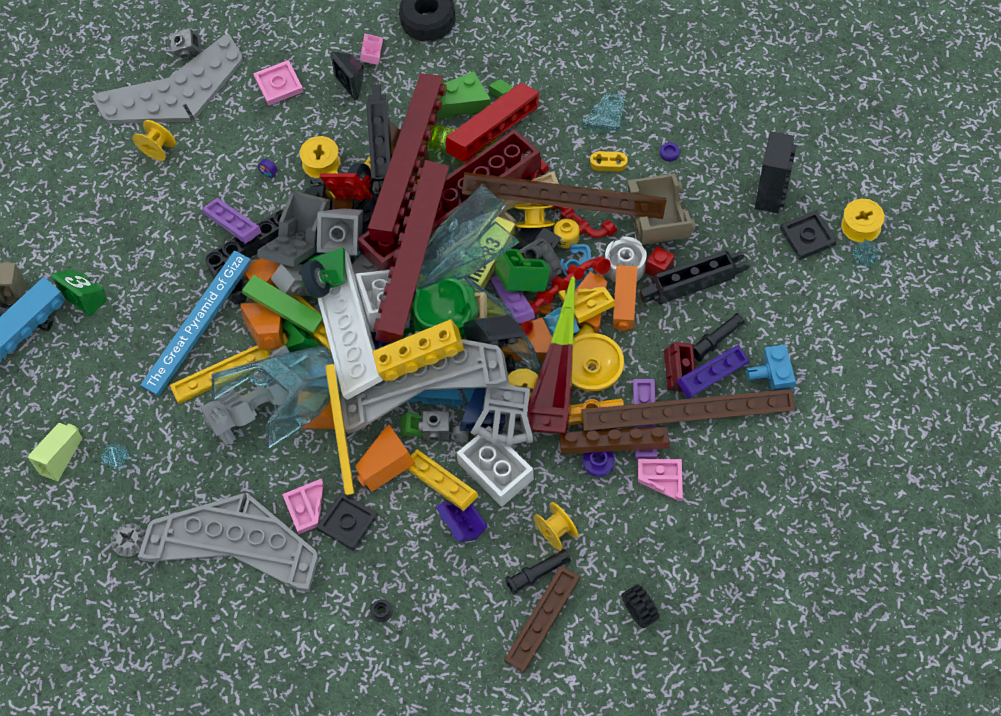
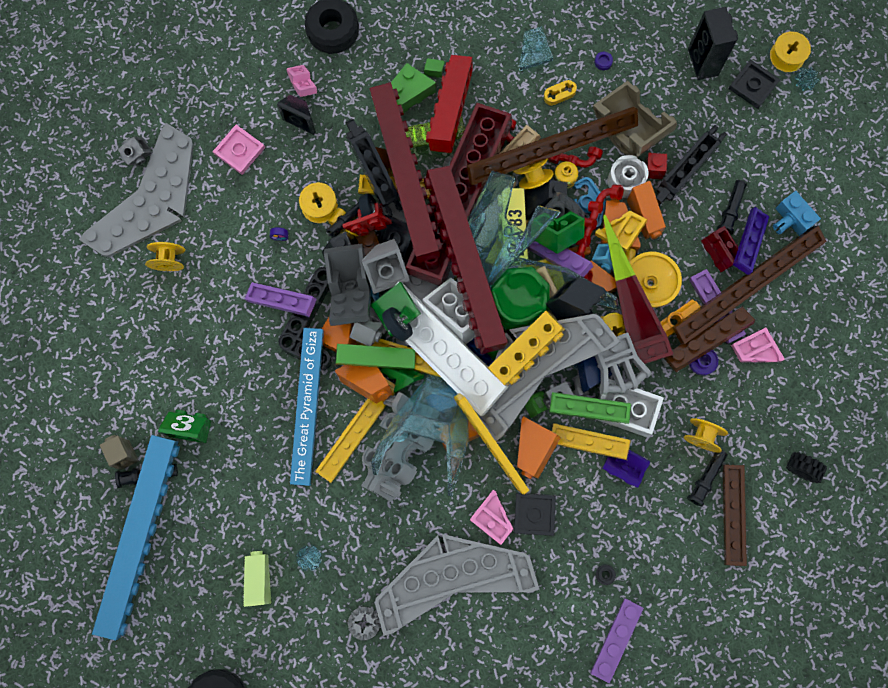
camera: 30 degrees left, 15 degrees up
(354, 677) = (616, 640): none -> medium lavender plate
(454, 443) = (590, 408): none -> bright green tile

